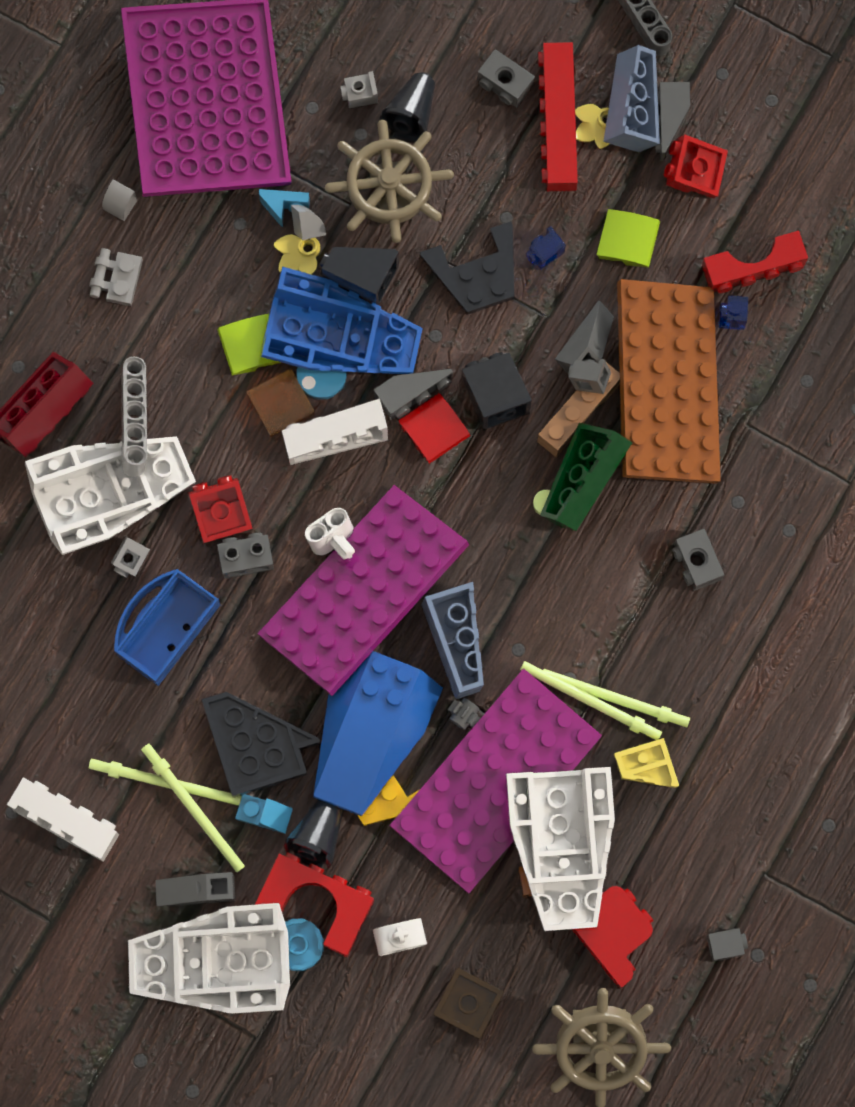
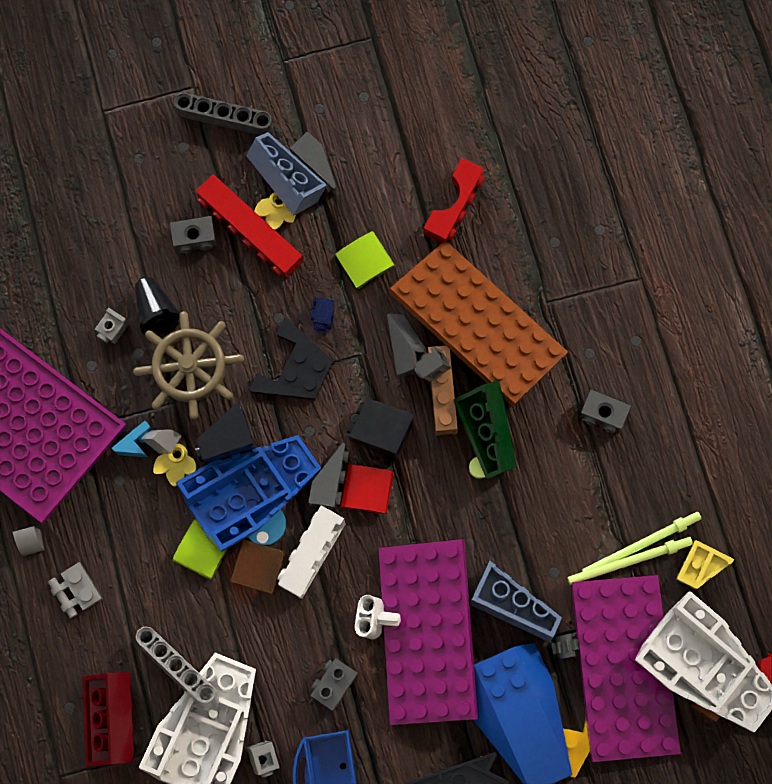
camera: 40 degrees left, 0 degrees up
(220, 509) = (288, 671): red plate -> none
(695, 166) = (361, 178): red plate -> none
(734, 313) = (473, 243): clear blue brick -> none

